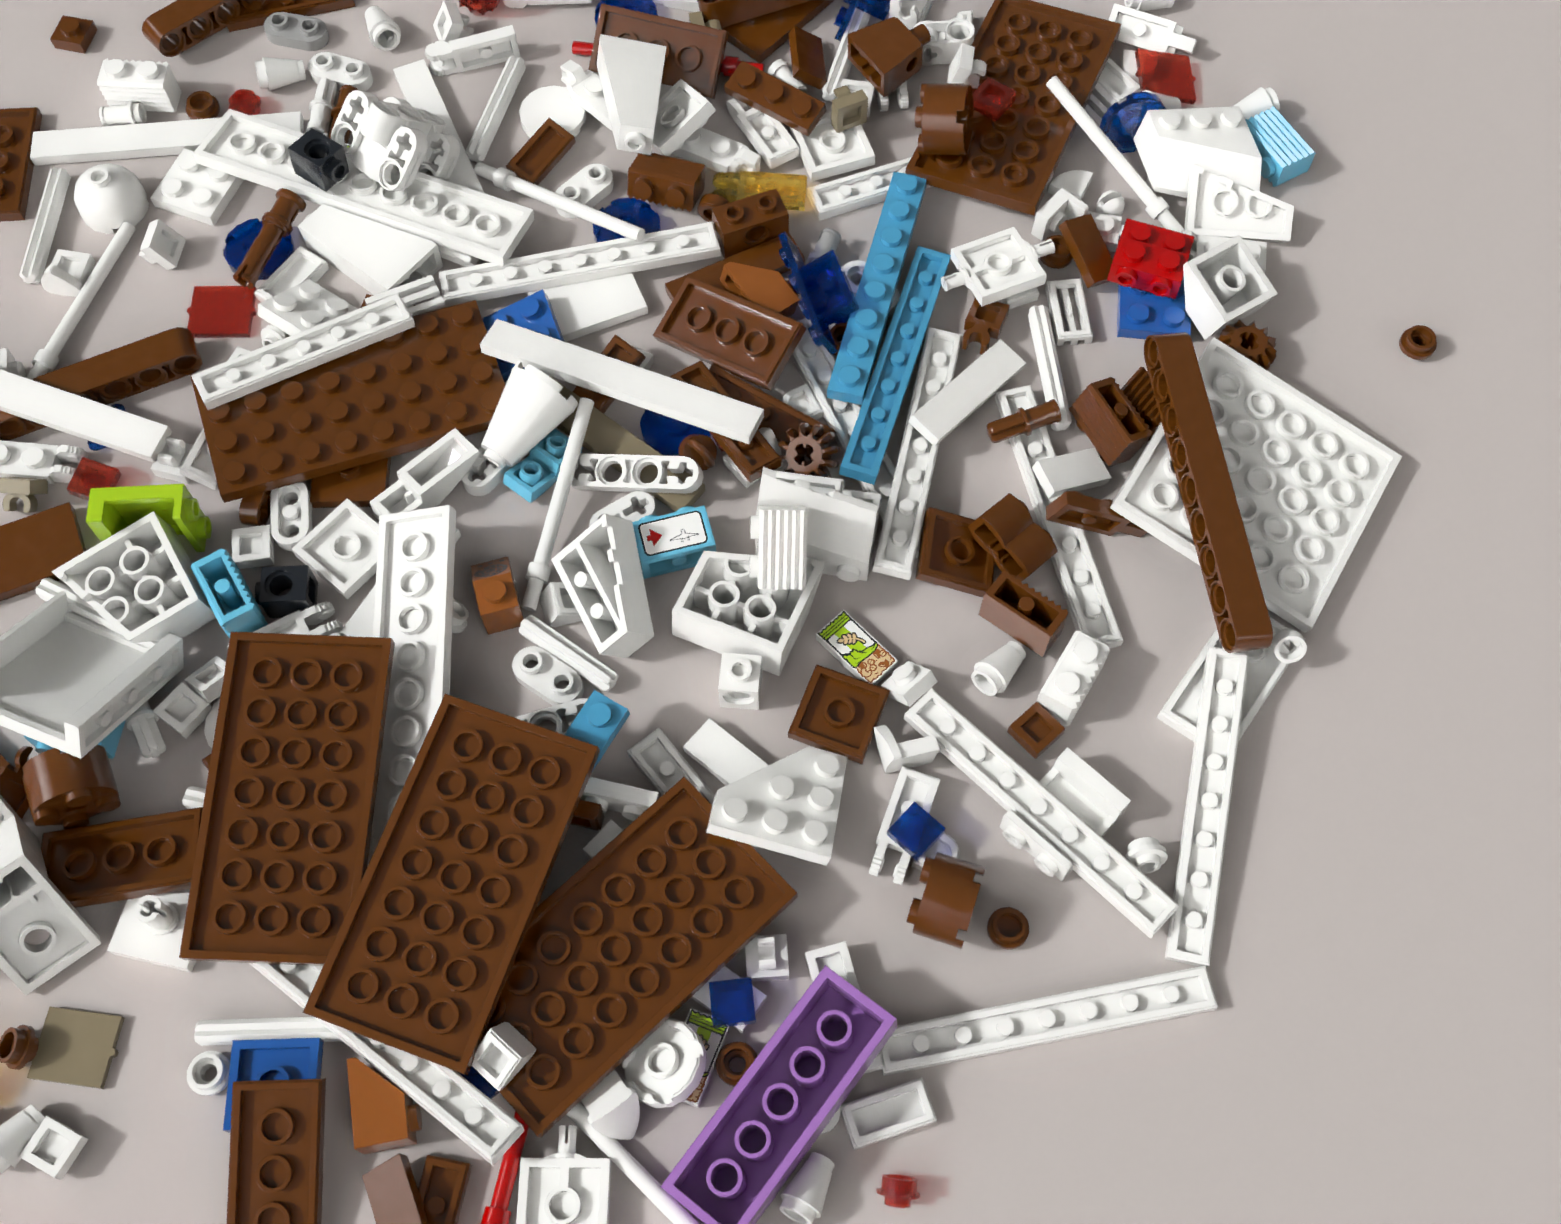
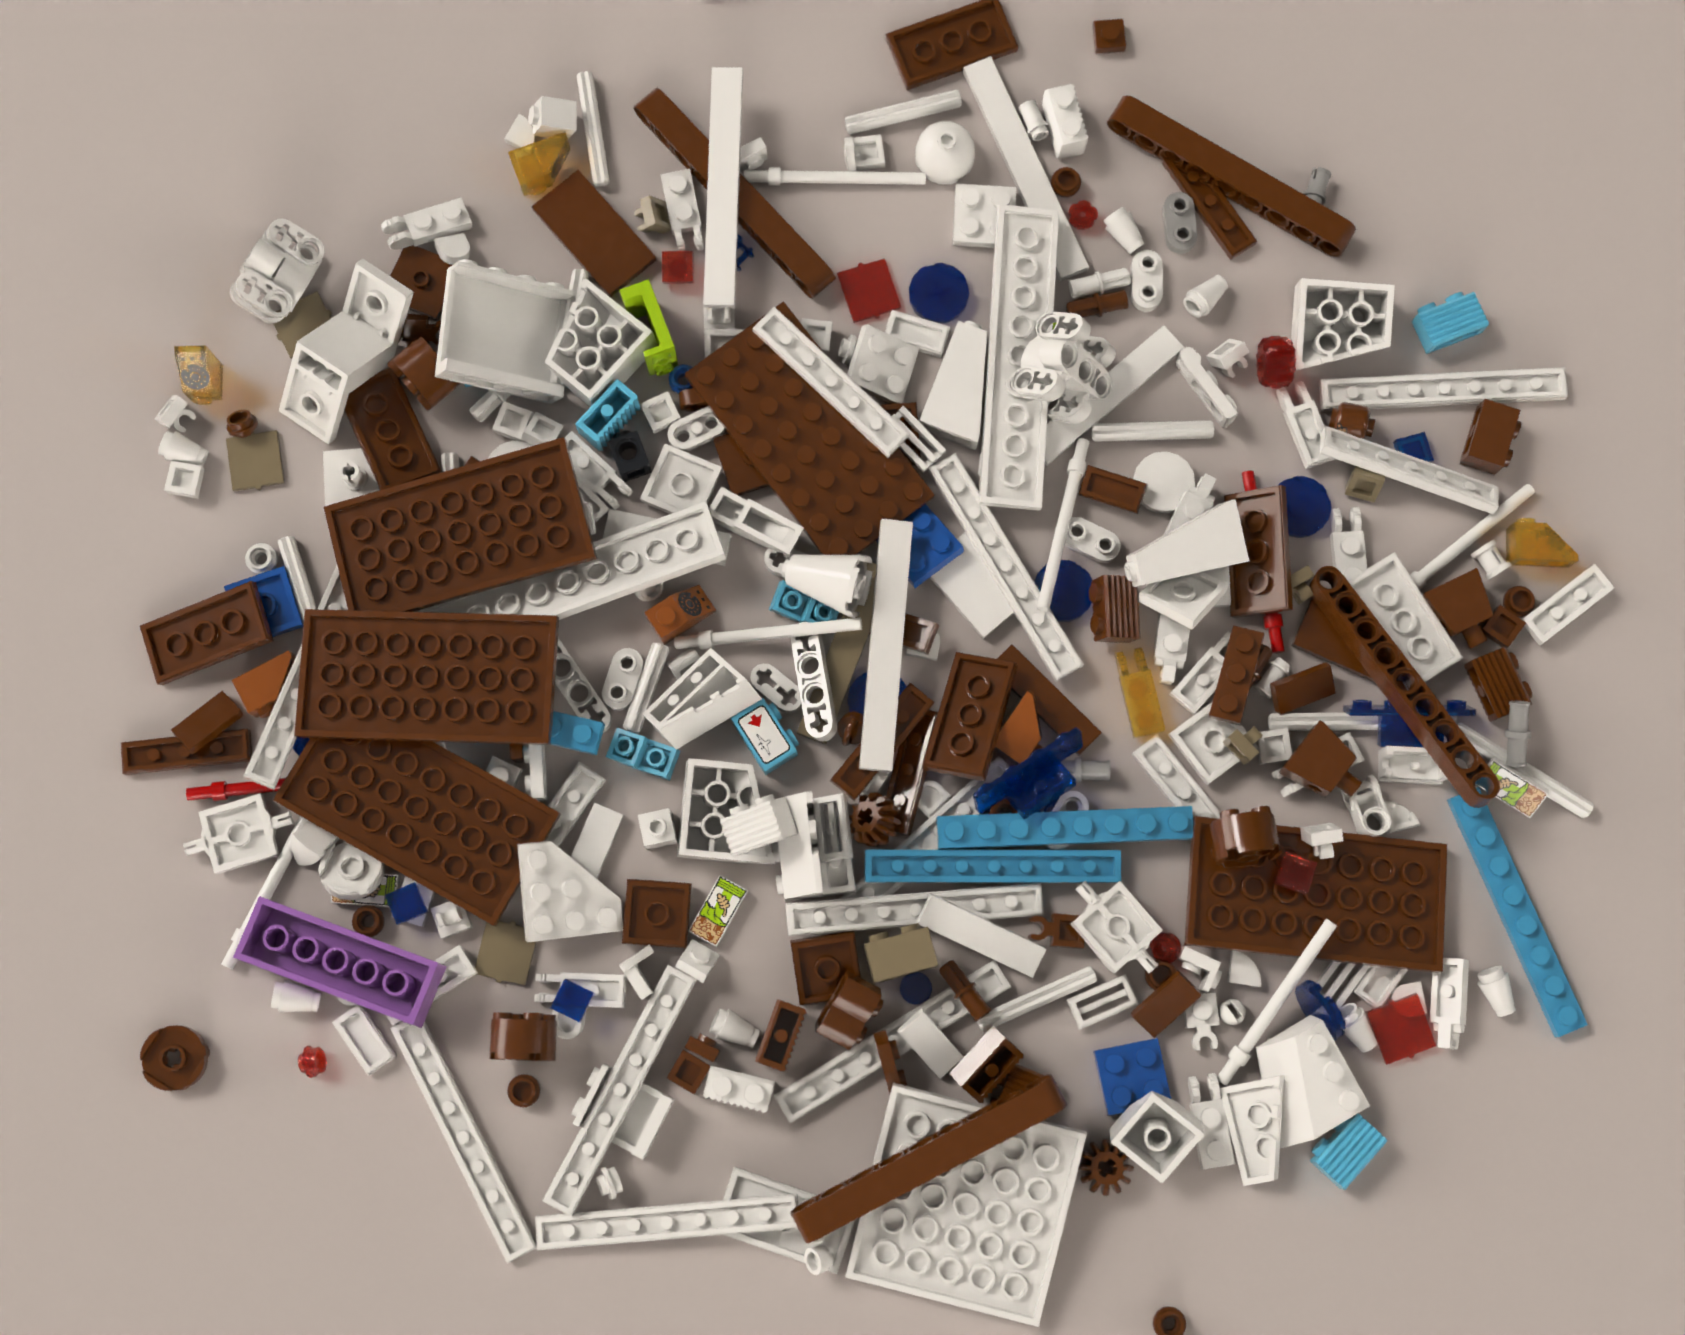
camera: 70 degrees right, 15 degrees up
(162, 245) = (911, 216): white tile -> none
(219, 509) = (675, 375): none -> blue plate
(275, 226) = (955, 301): reddish brown pin -> none
(318, 159) = (1022, 301): black brick -> none
(502, 1055) = (319, 756): white slope -> none
(646, 678) = (643, 753): none -> medium azure slope
(708, 202) = (1102, 661): reddish brown tile -> none
(750, 222) = (1094, 696): reddish brown brick -> none
(830, 904) = (505, 953): none -> dark tan piece
(969, 472) = (900, 954): none -> dark tan slope
(1004, 476) = (915, 988): none -> clear blue tile
(1012, 704) = (703, 1046): none -> reddish brown plate
(1032, 228) = (1171, 944): none -> clear red plate
(1150, 258) = (1170, 1061): red plate -> none
(1258, 101) = (1390, 1121): white cone -> none

